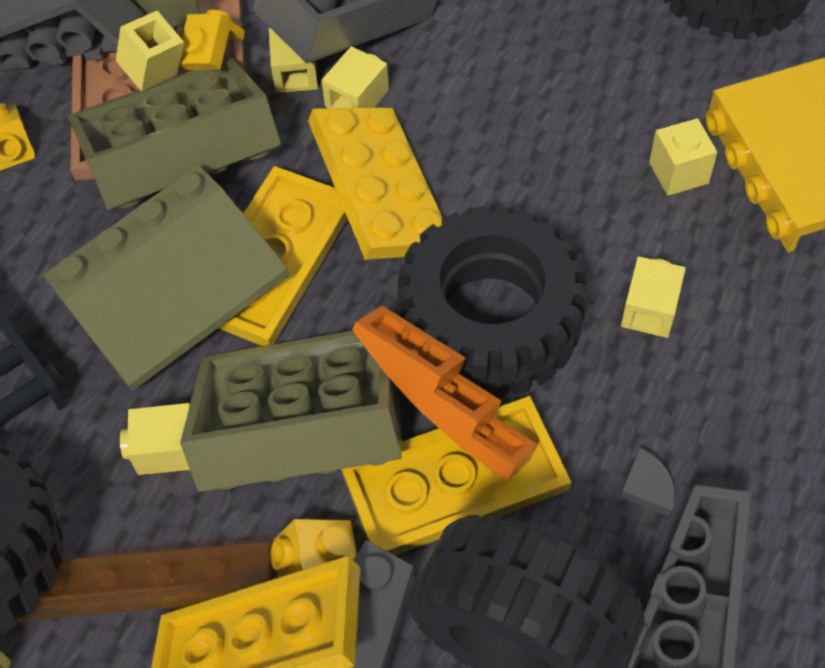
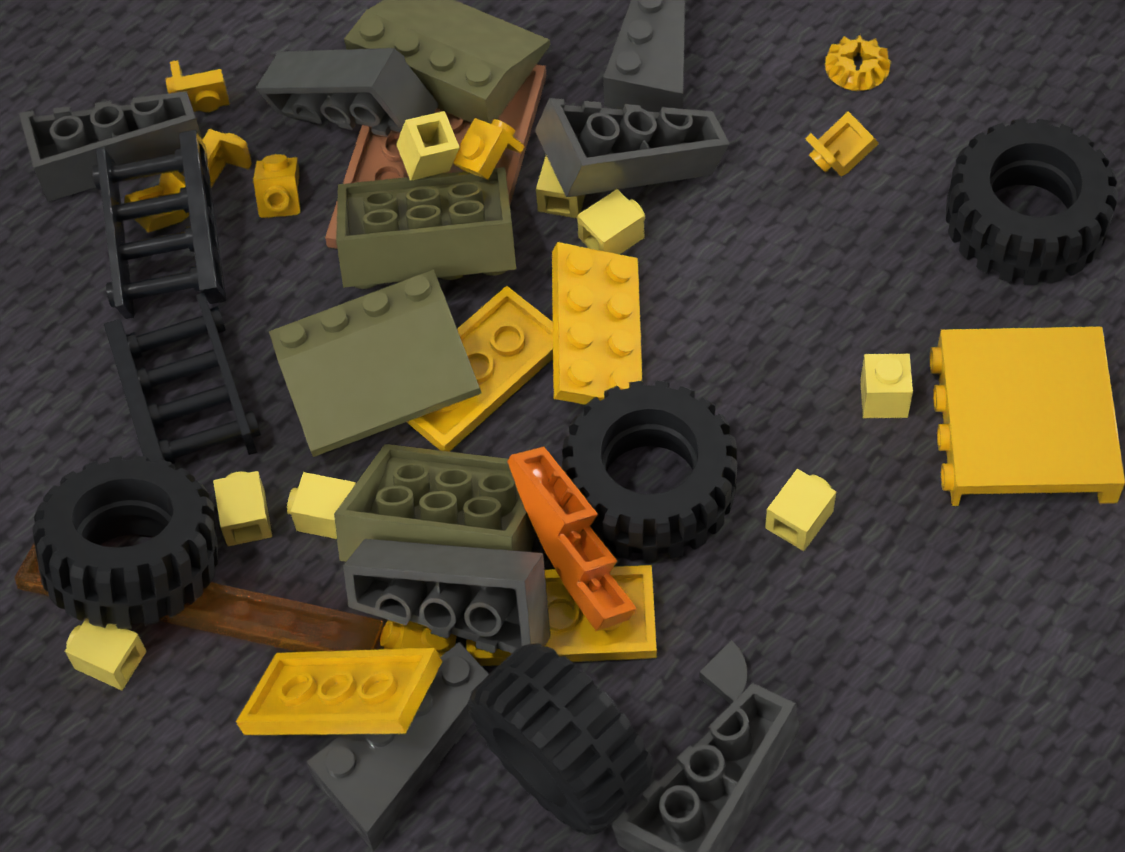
camera: 20 degrees right, 0 degrees up
(71, 468) = (242, 508): none -> light yellow brick
(340, 486) = (453, 590): none -> dark grey wedge

